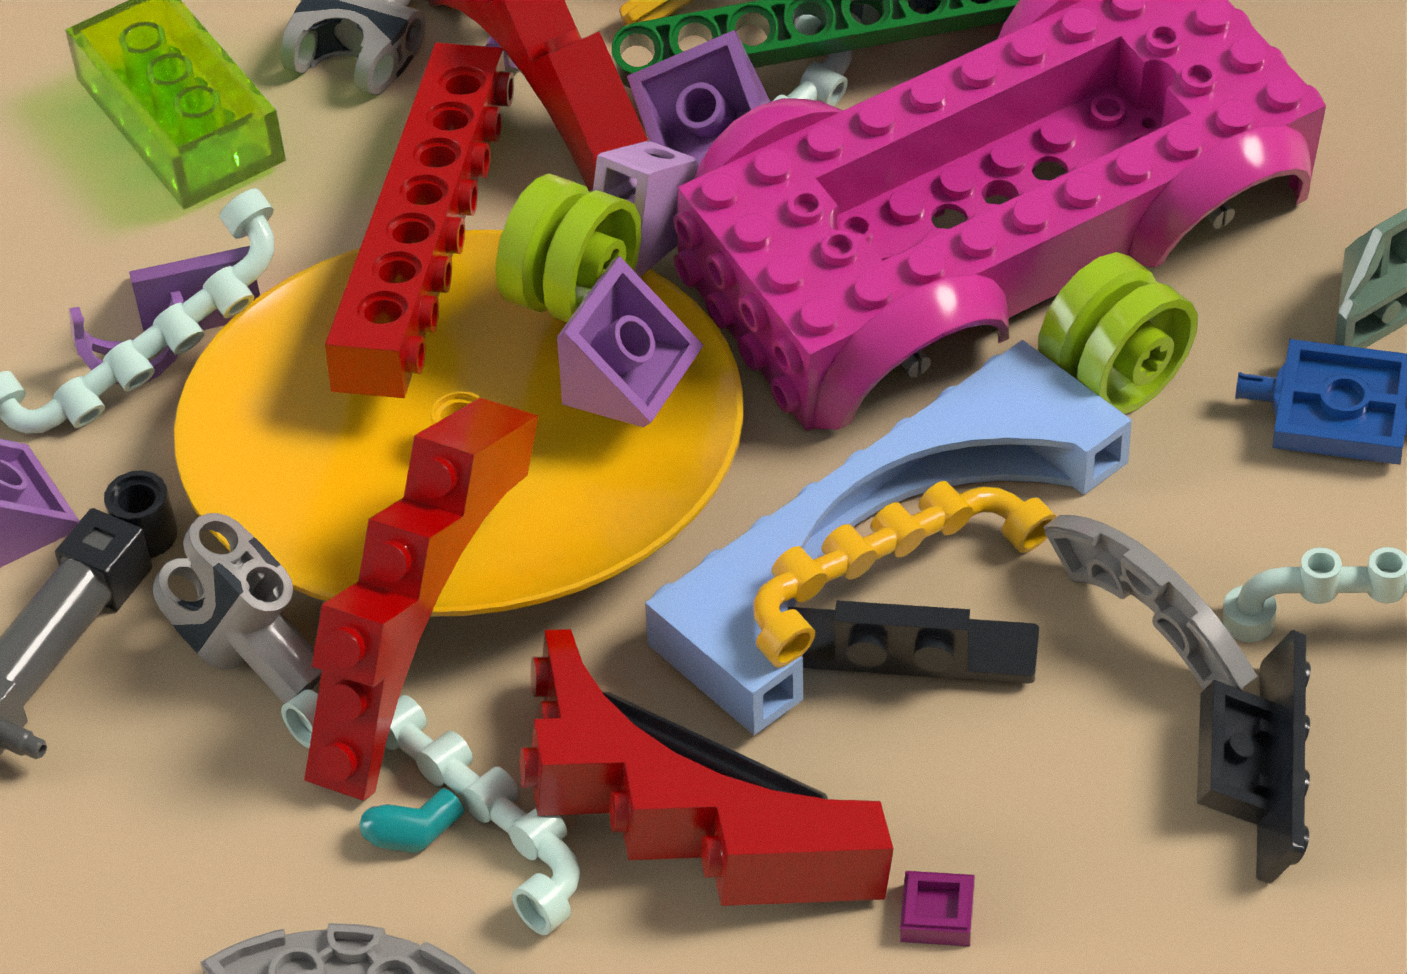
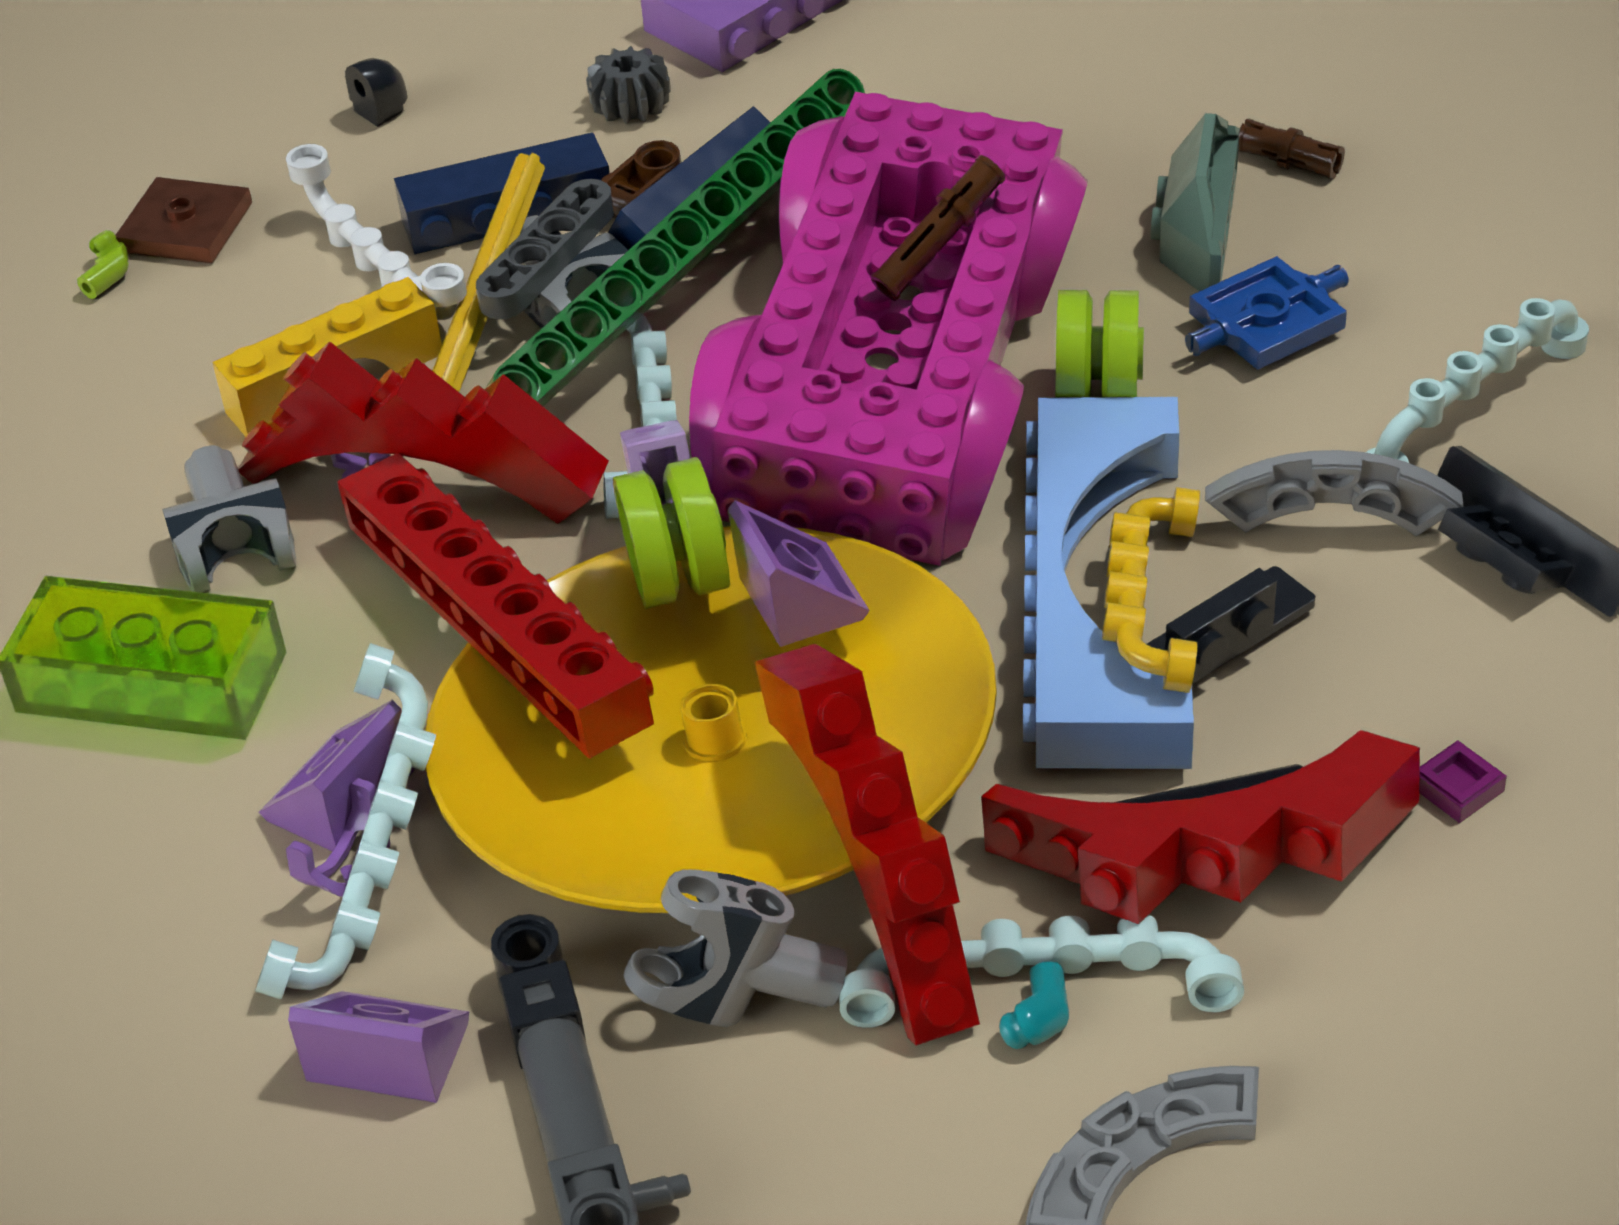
camera: 45 degrees left, 5 degrees down
(697, 94) = (609, 390): medium lavender slope -> none
(1114, 120) = (954, 209): none -> reddish brown pin

